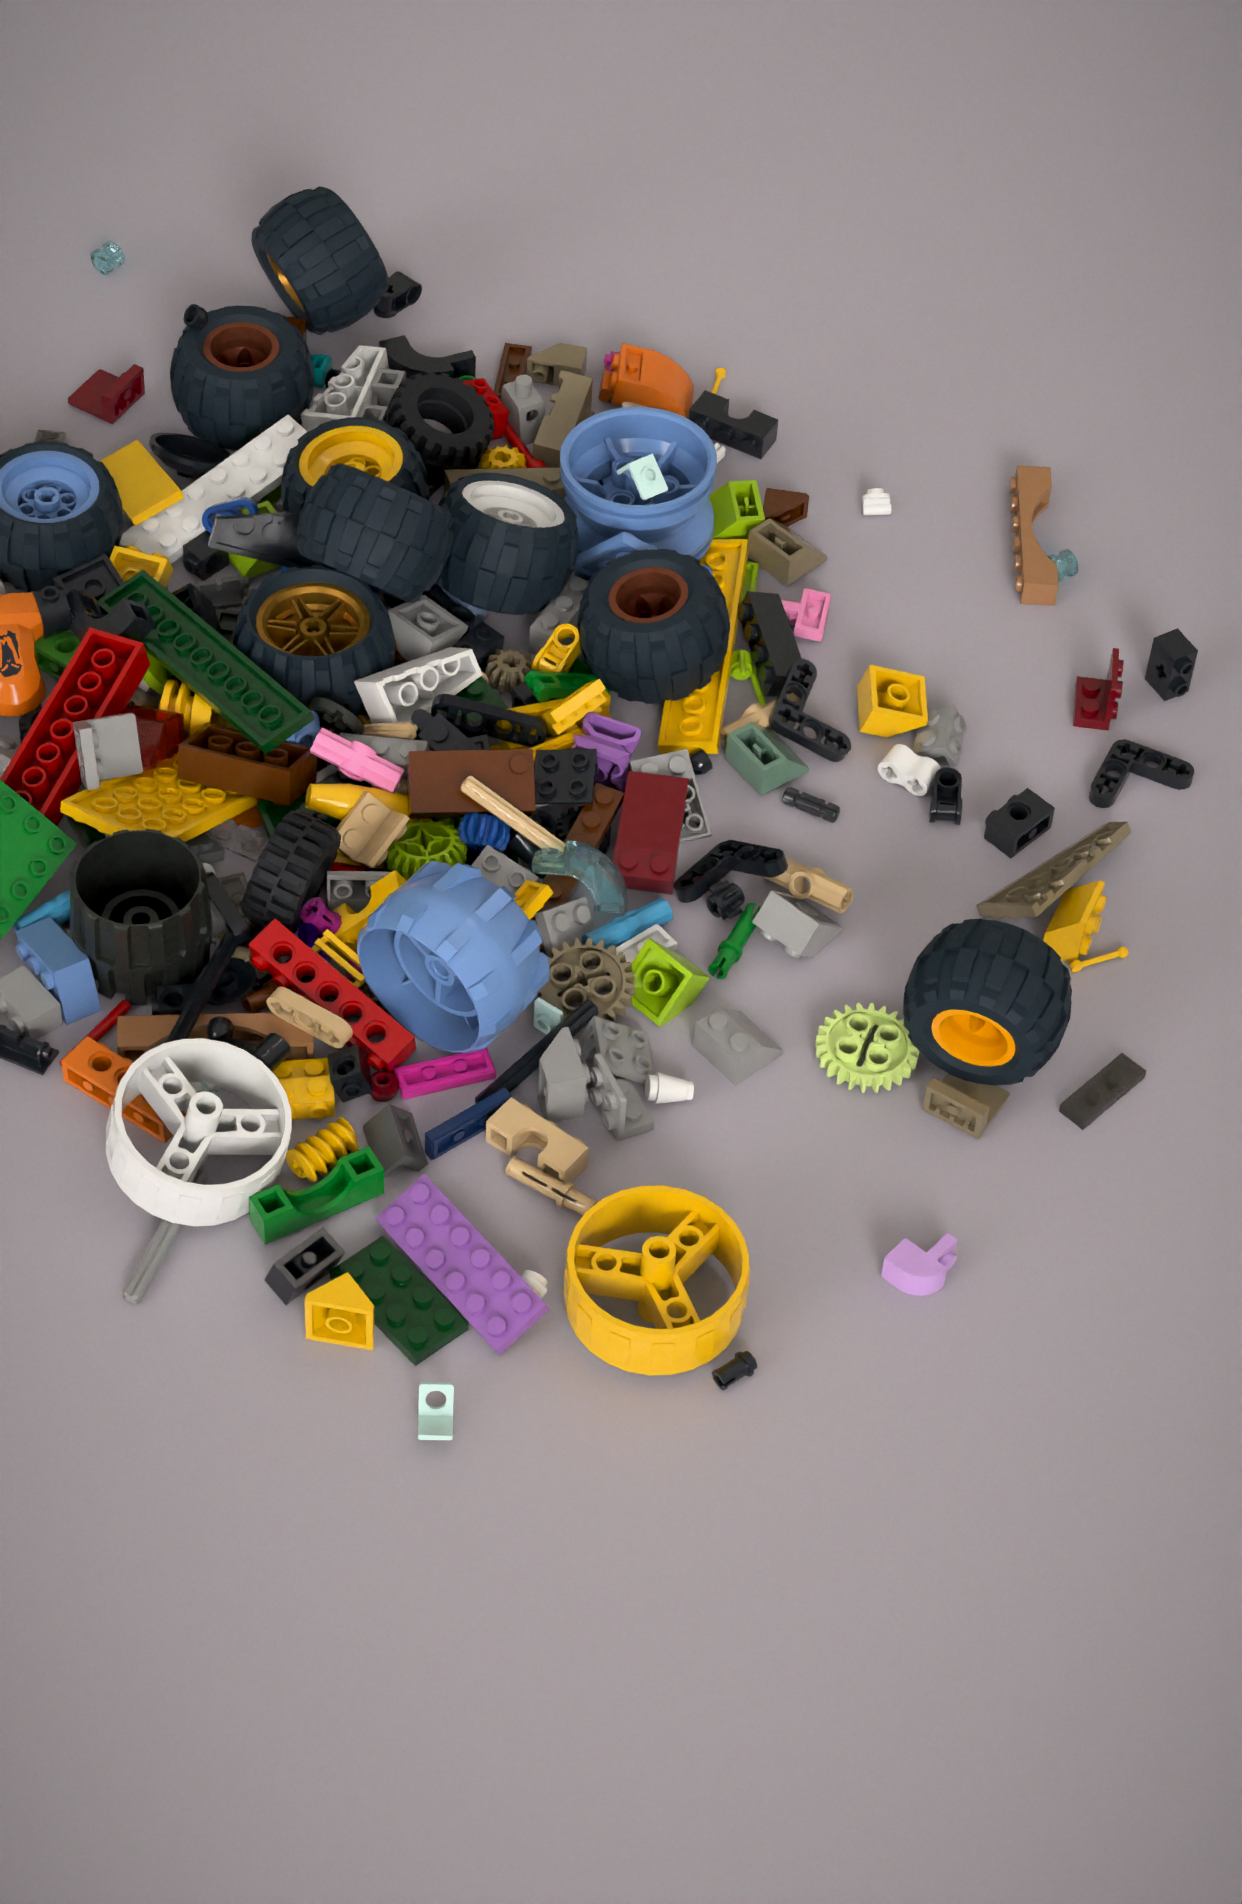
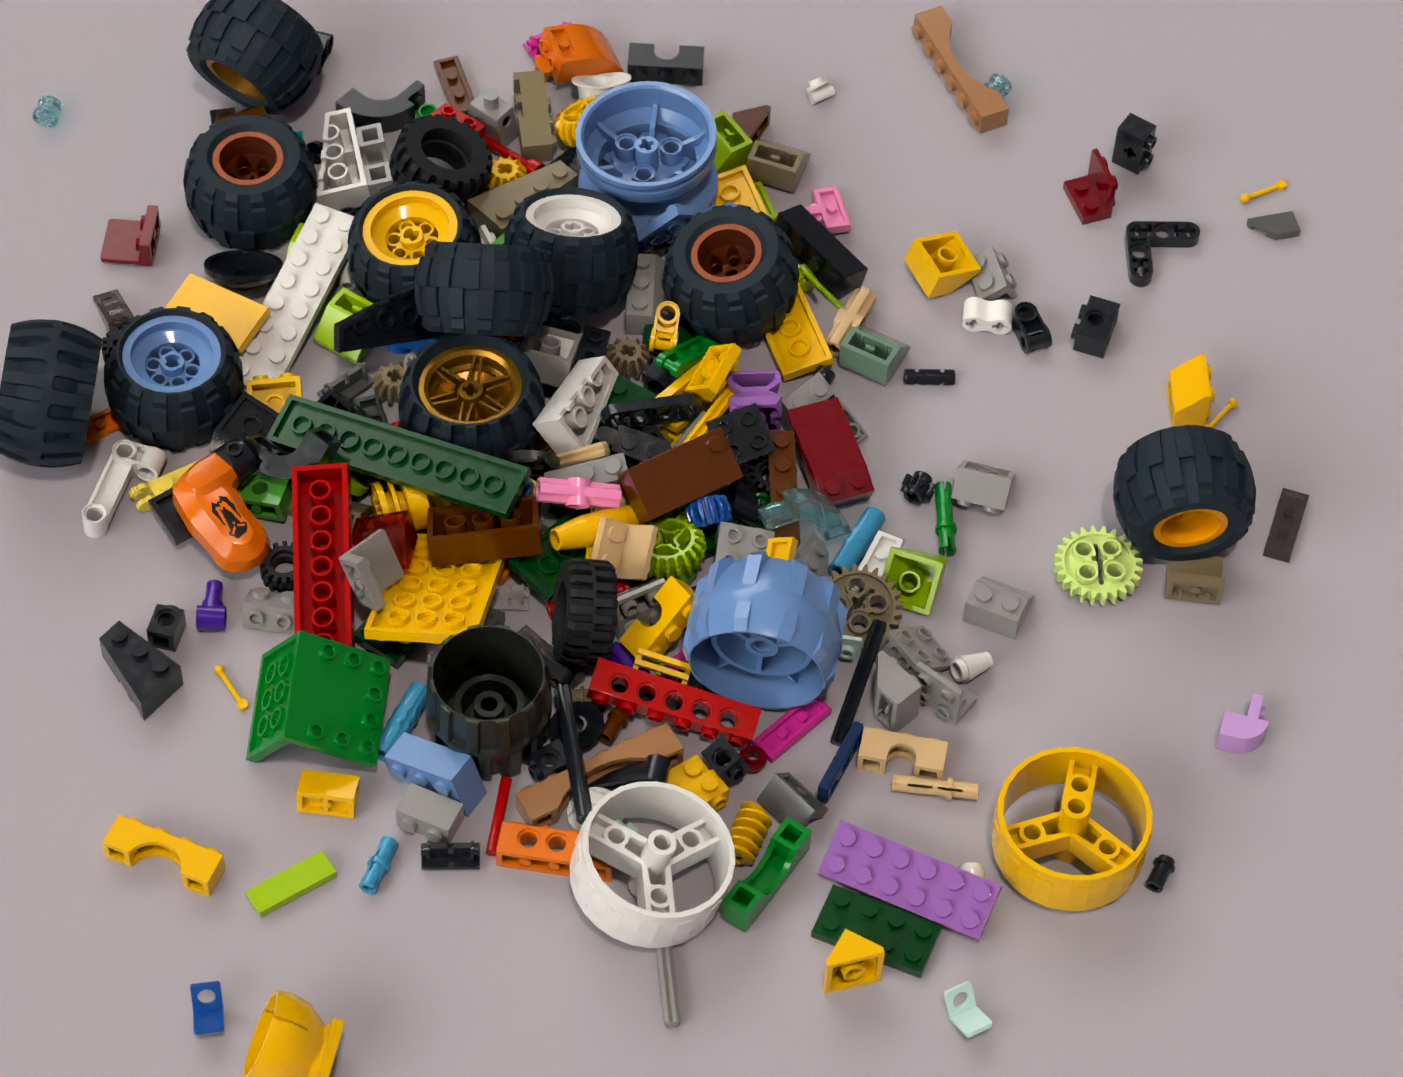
camera: 25 degrees left, 5 degrees up
(195, 316) = (198, 143): black hinge -> none
(203, 560) = (313, 355): black brick -> none
(218, 1027) = (604, 770): black hinge -> none
(228, 508) = (325, 314): blue plate -> none
(304, 1266) = (795, 937): black brick -> none
(309, 1017) = (672, 728): tan beam -> none
(320, 916) = (626, 634): magenta bush -> none
(510, 814) = (728, 489): tan axle -> none
(547, 364) = (493, 65): dark tan slope -> none
(646, 476) = (668, 148): light aqua bracket -> none
(719, 373) = (623, 20): yellow hinge -> none
(726, 857) = (899, 447): black beam -> none
(794, 714) = (876, 303): black beam -> none
(821, 890) = (954, 445): tan piece -> none
(1048, 881) = (1152, 368): dark tan wing -> none

